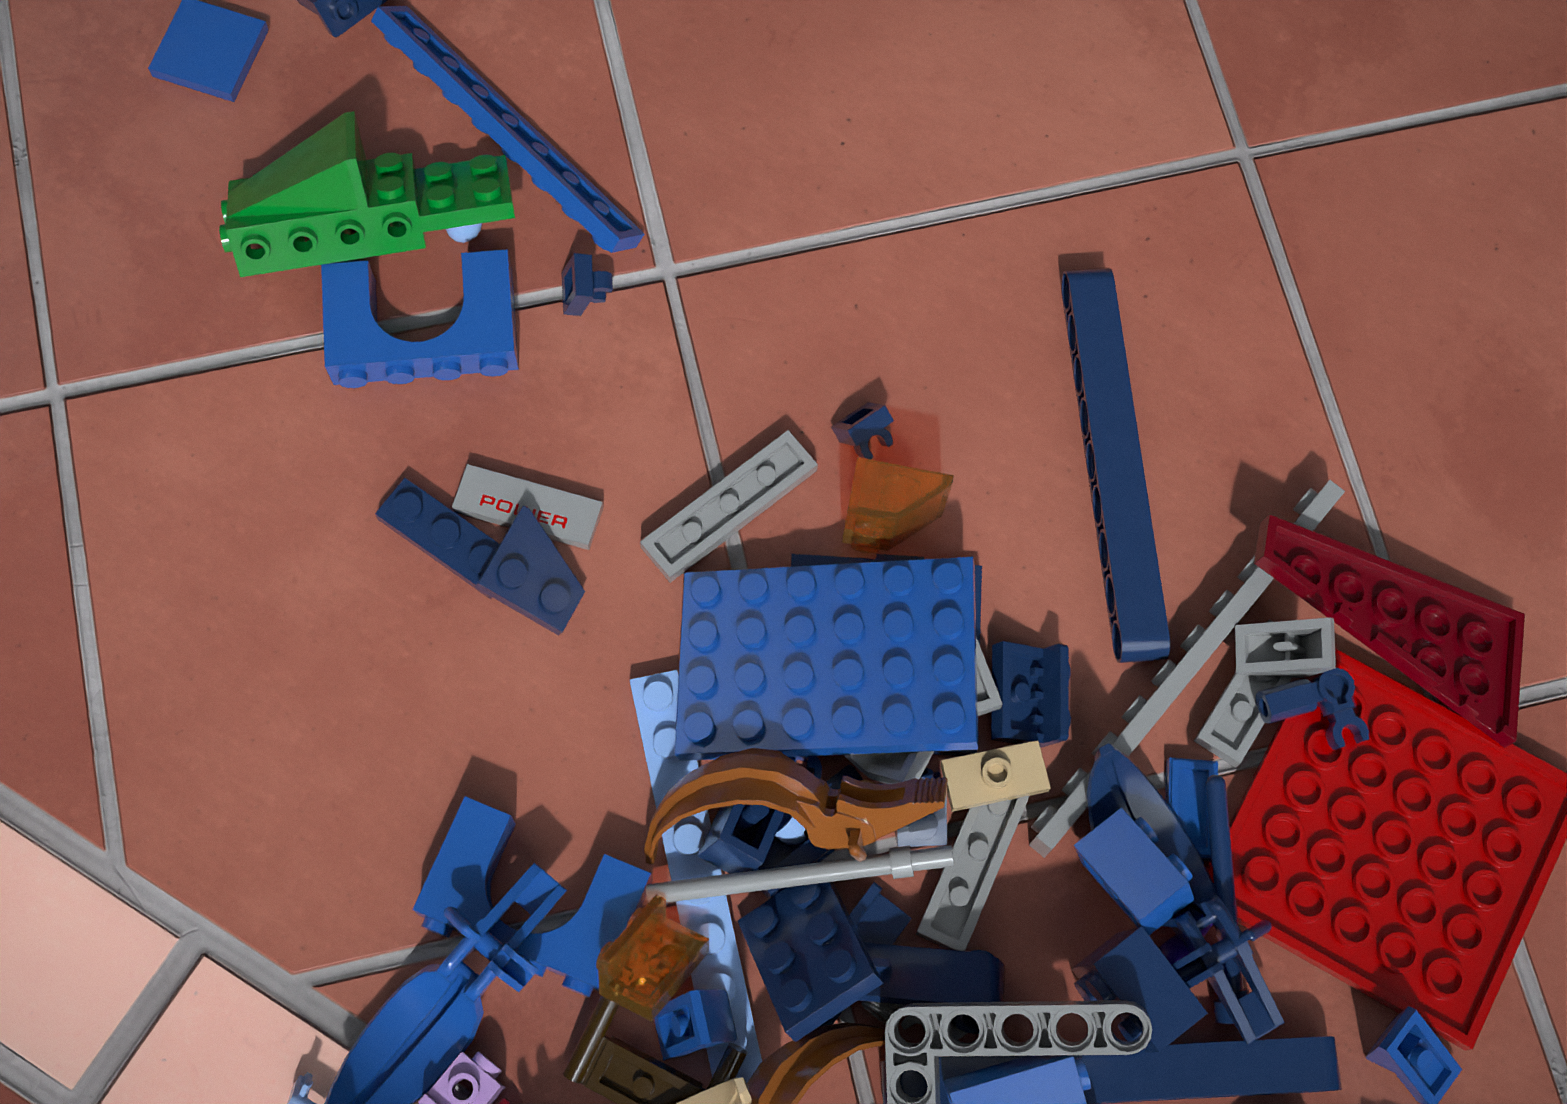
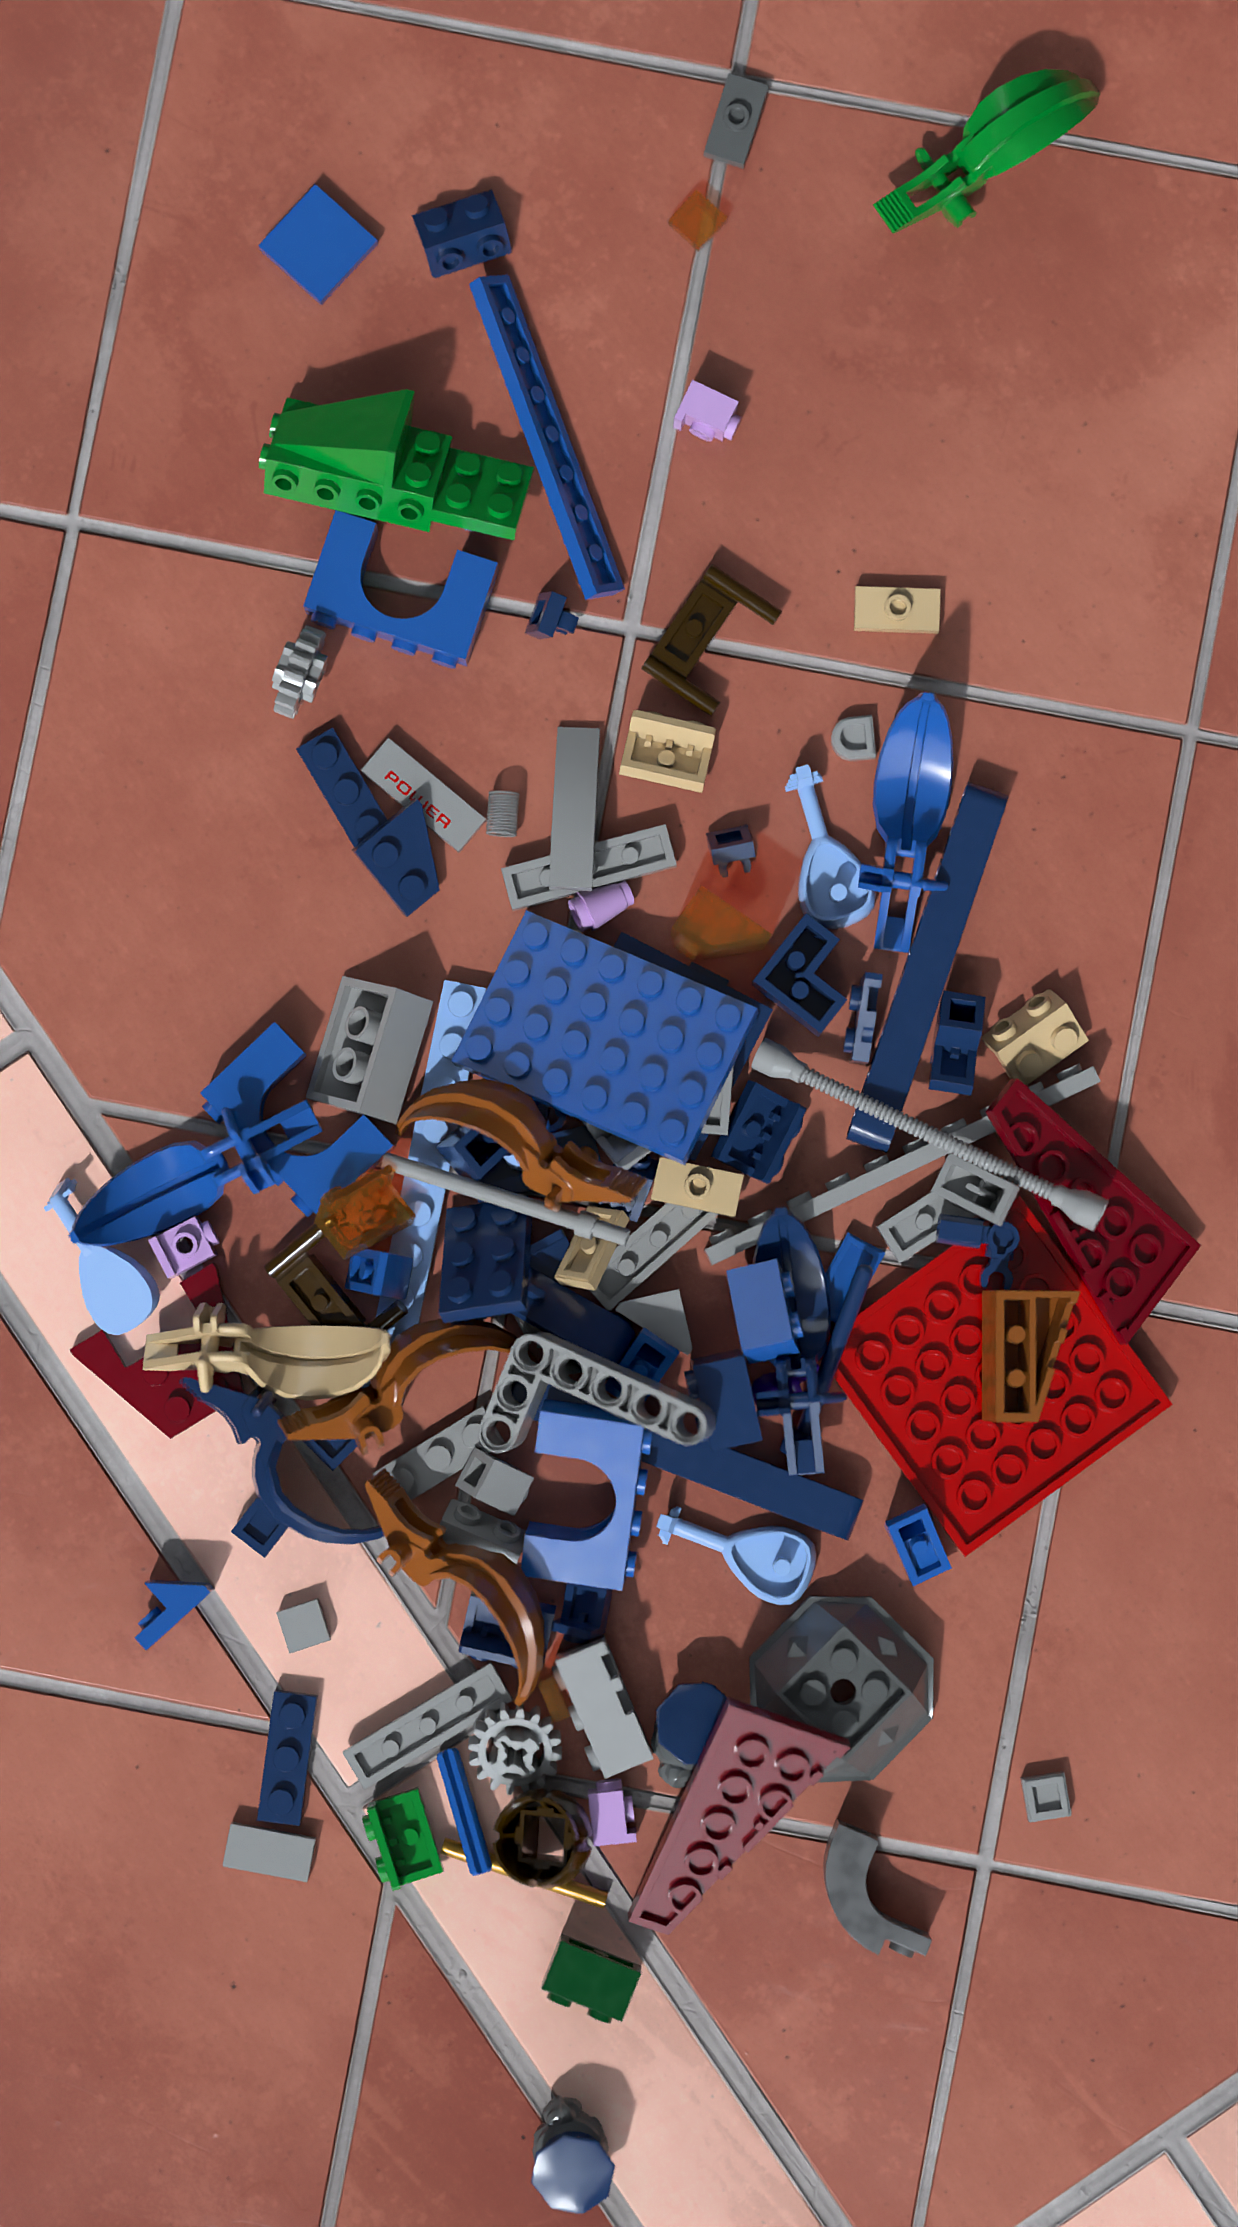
camera: 25 degrees right, 15 degrees up
(346, 429) = (299, 671): none -> light grey gear
(581, 784) = (369, 1049): none -> light grey slope
(630, 499) = (499, 816): none -> light grey piece
(653, 47) = (707, 413): none -> lavender brick
(691, 454) = (574, 809): none -> light grey slope
(732, 240) = (695, 630): none -> dark brown plate
(756, 538) = (600, 905): none -> lavender cone
(757, 359) = (667, 750): none -> tan bracket
(915, 151) = (897, 609): none -> tan plate
(915, 901) = (586, 1258): none -> tan plate
(933, 282) = (854, 738): none -> light grey tile
(977, 421) = (829, 869): none -> light blue piece
(991, 525) = (790, 976): none -> dark blue brick
(1020, 317) = (909, 810): none -> blue piece
(1024, 934) = (662, 1316): none -> light grey slope
(1030, 978) = (647, 1357): none -> blue slope
(1079, 531) = (863, 1001): none -> dark blue wing
(1181, 515) = (956, 1042): none -> dark blue brick
(1253, 481) = (1035, 1037): none -> tan bracket
(1405, 611) = (1080, 1206): none -> light grey hose
(1419, 794) = (1020, 1349): none -> dark orange wedge

